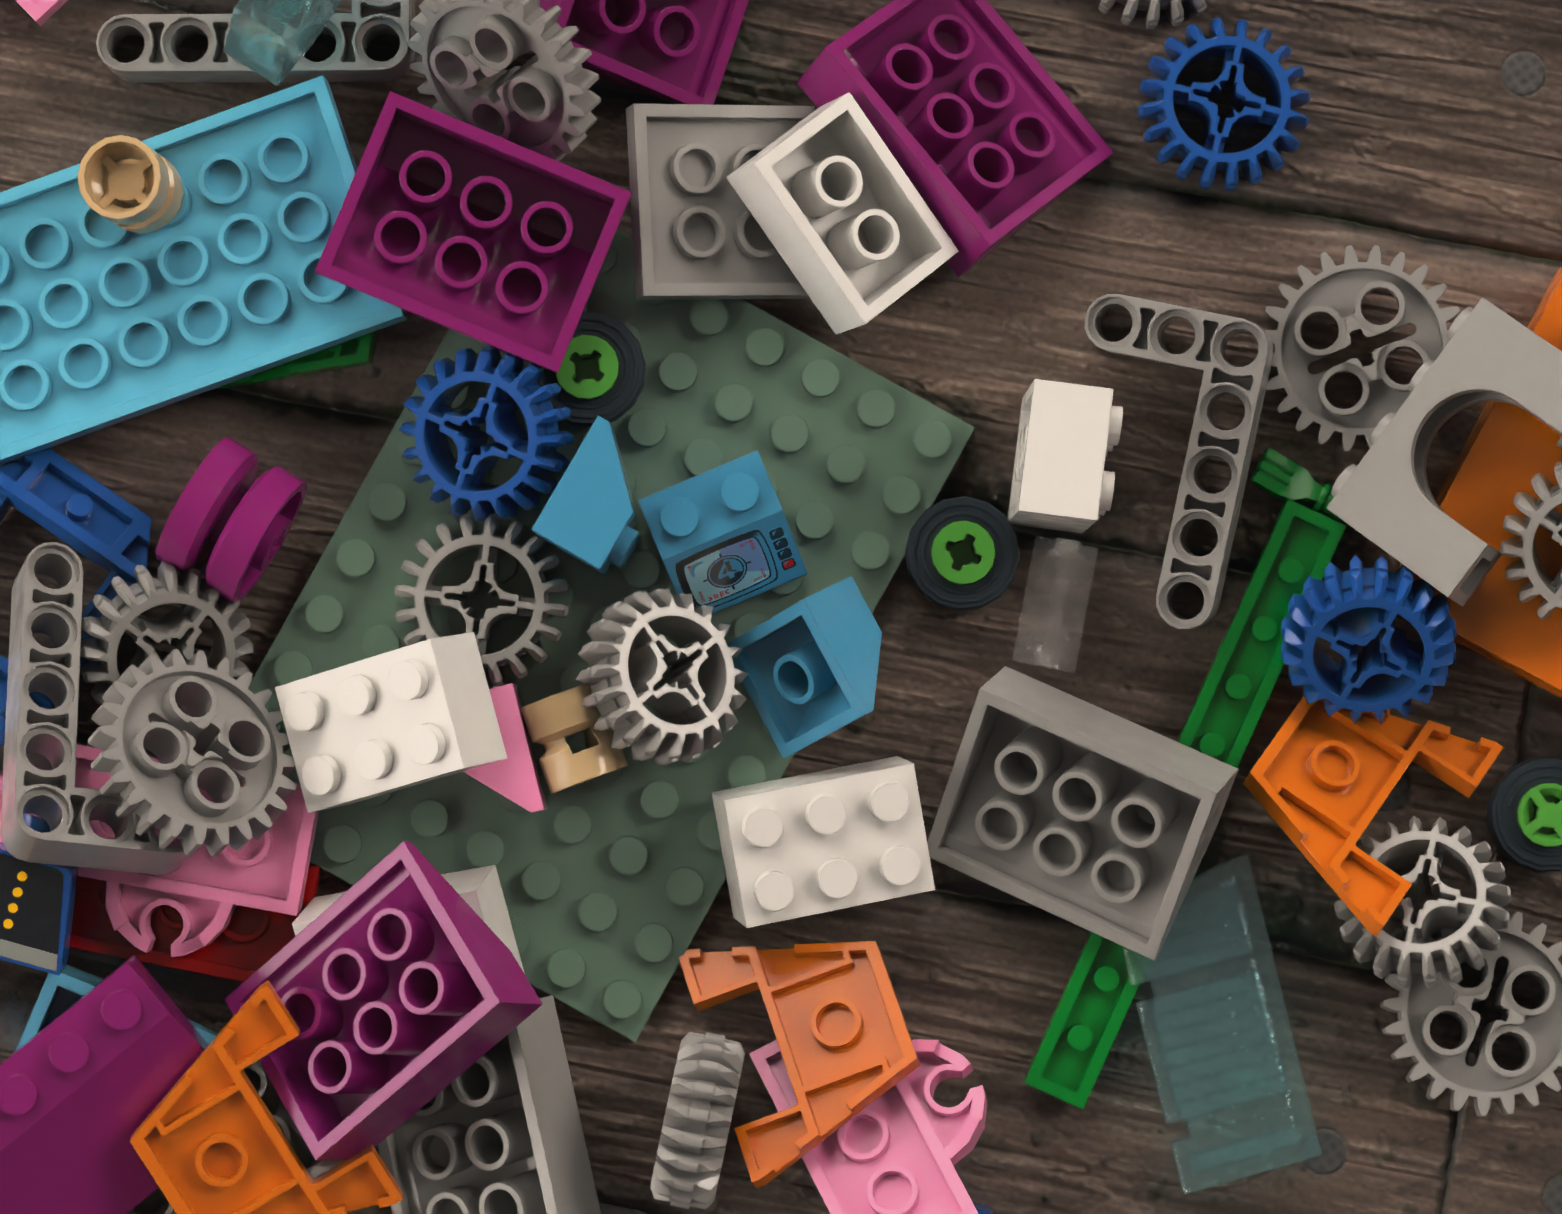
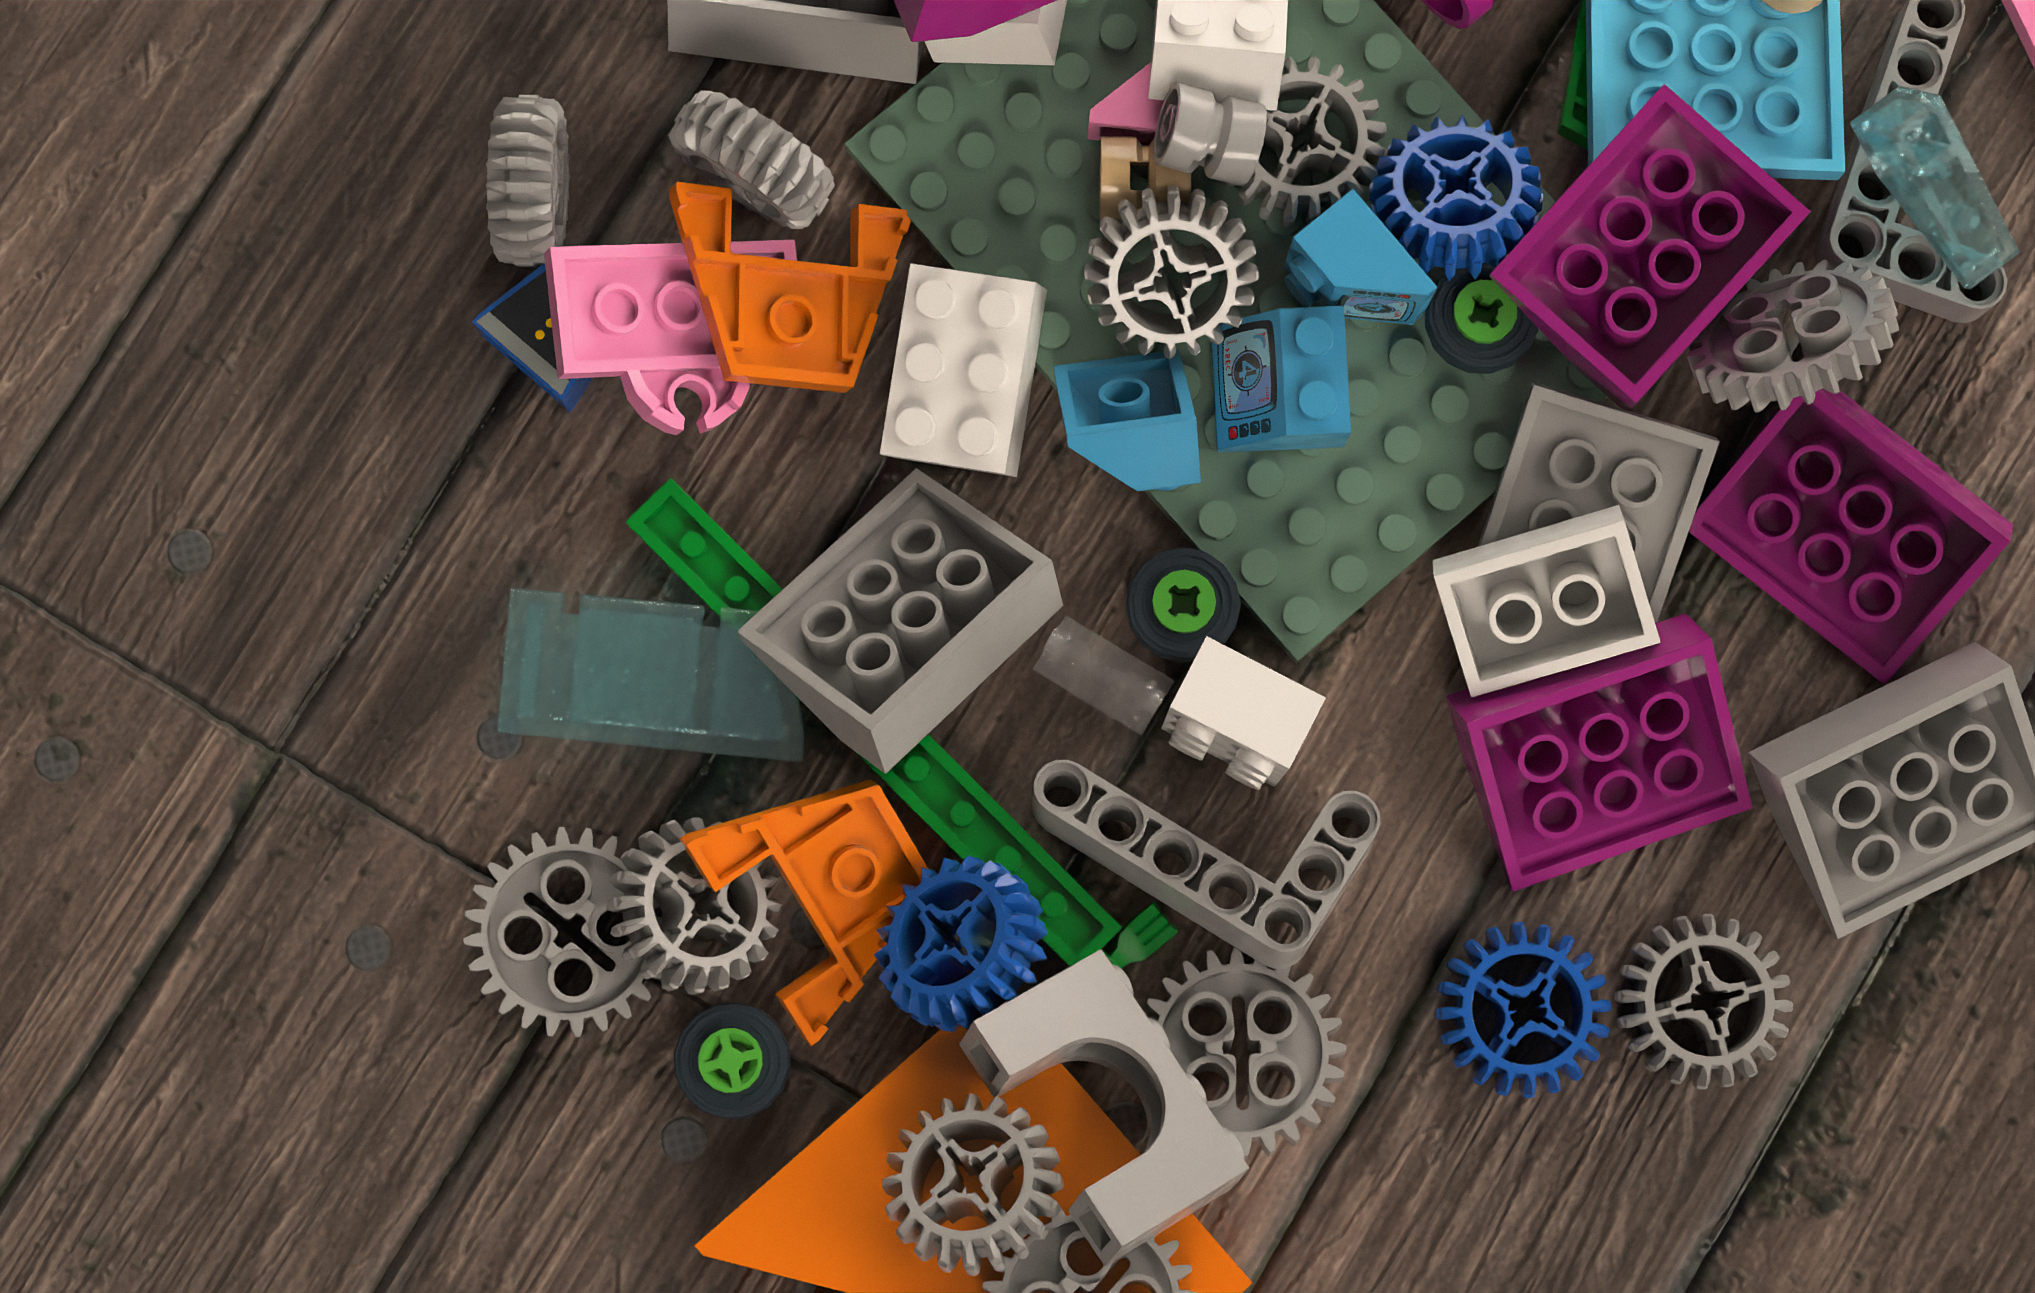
camera: 110 degrees right, 5 degrees down
(524, 675) = (1210, 134): none -> light grey wheel

